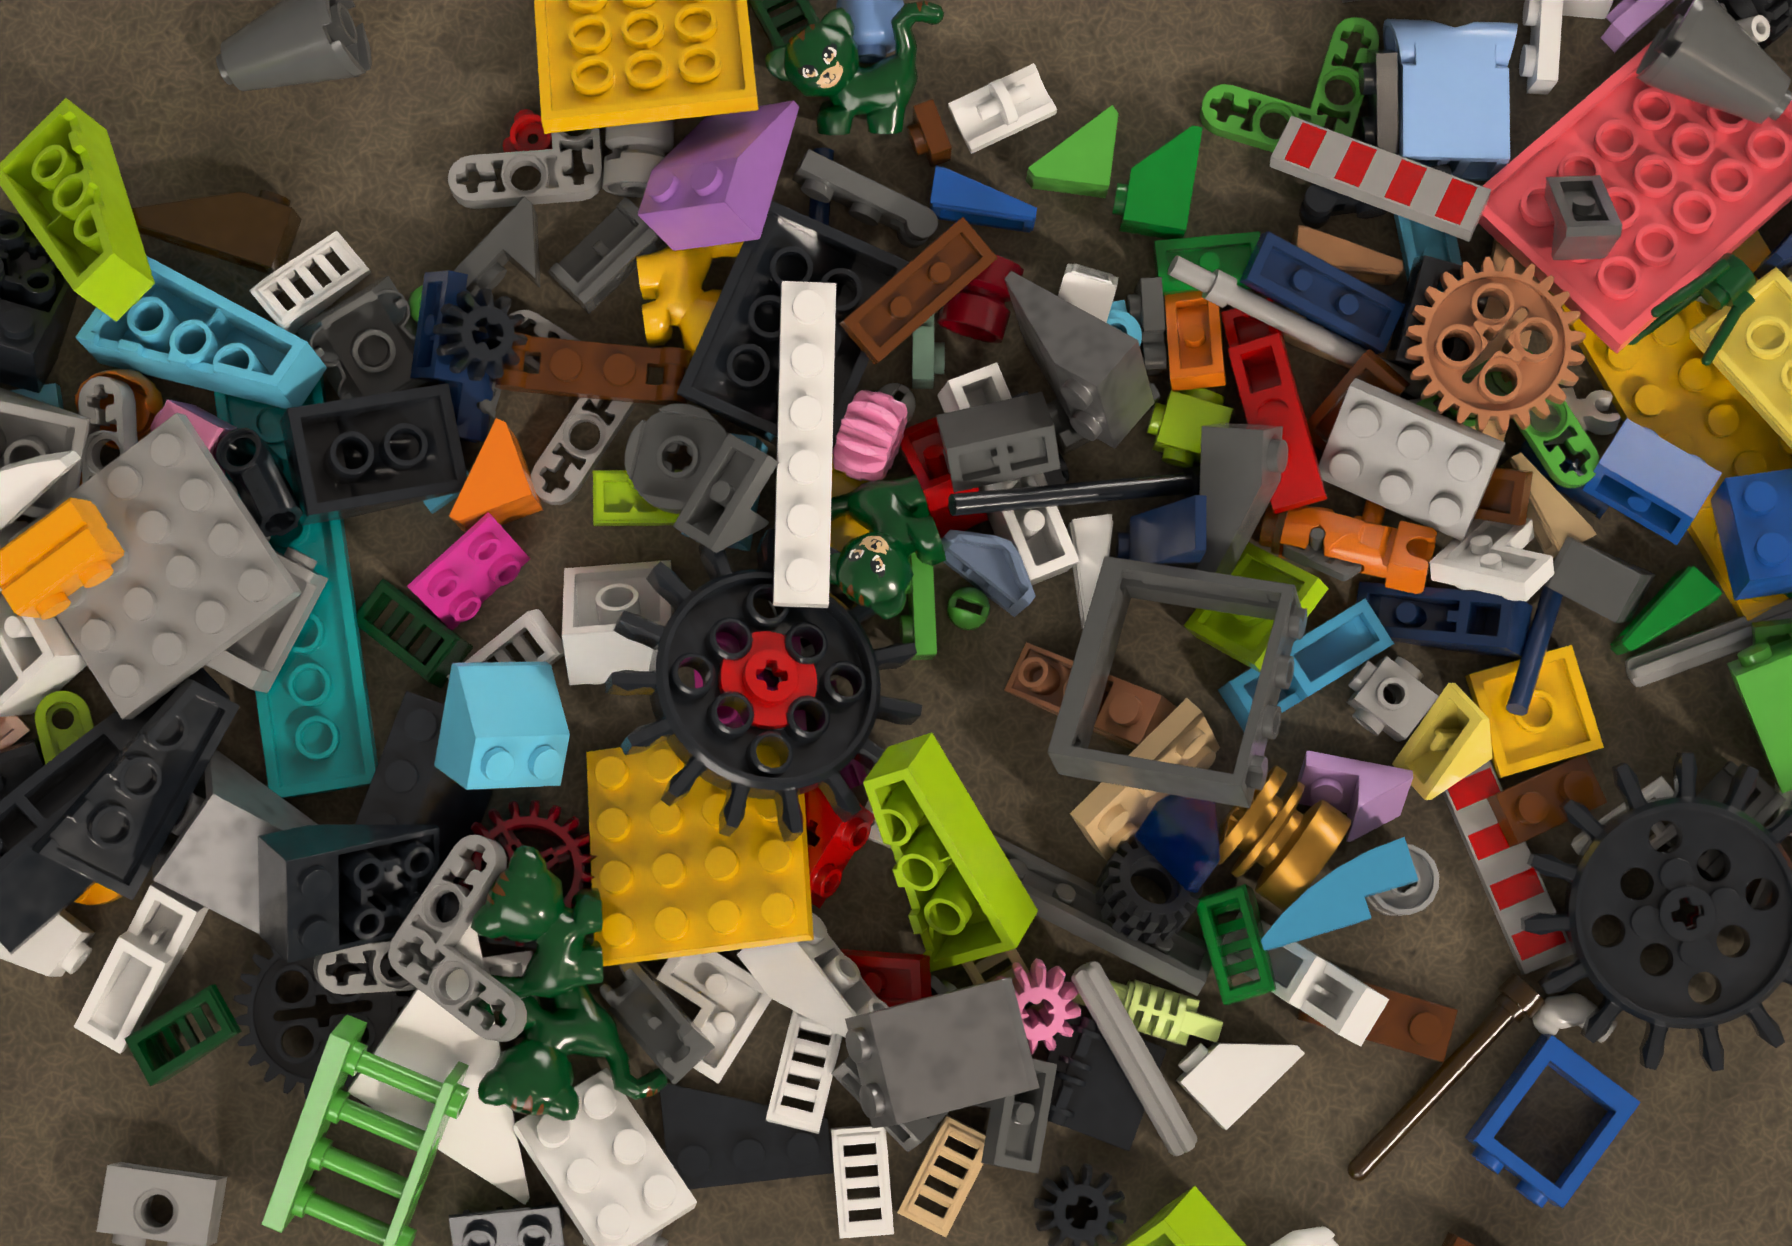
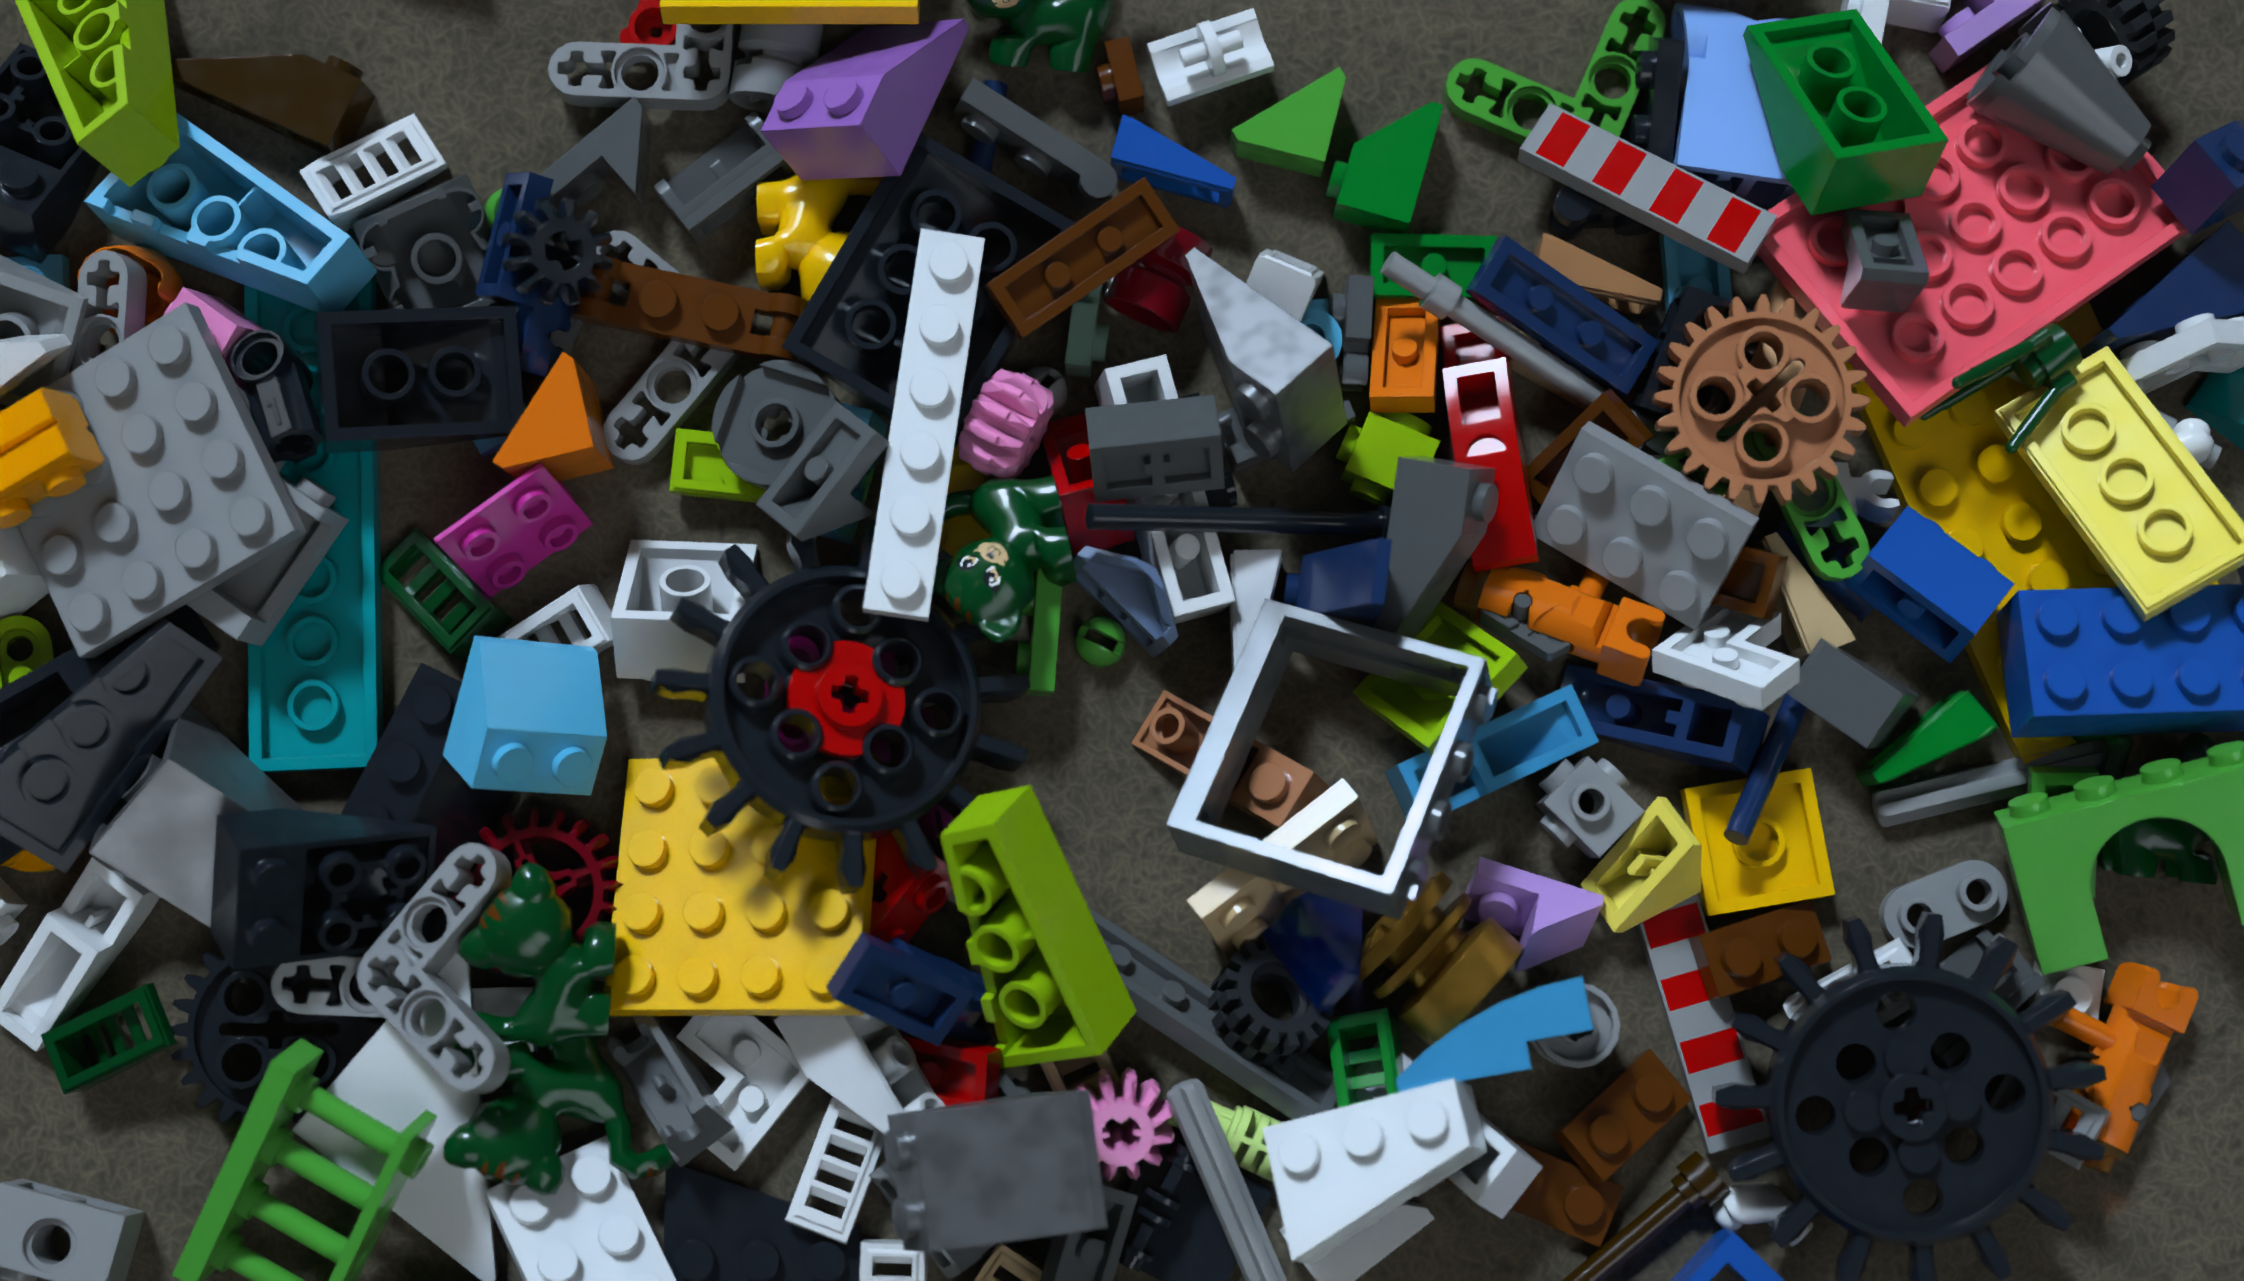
camera: 10 degrees right, 0 degrees up
(851, 914) = (911, 990): none -> dark blue plate
(1244, 1009) = (1366, 1159): none -> white wedge
(1449, 952) = (1622, 1116): none -> reddish brown plate
(1534, 97) = (1841, 112): none -> green slope
(1695, 737) = (1946, 895): none -> light grey plate

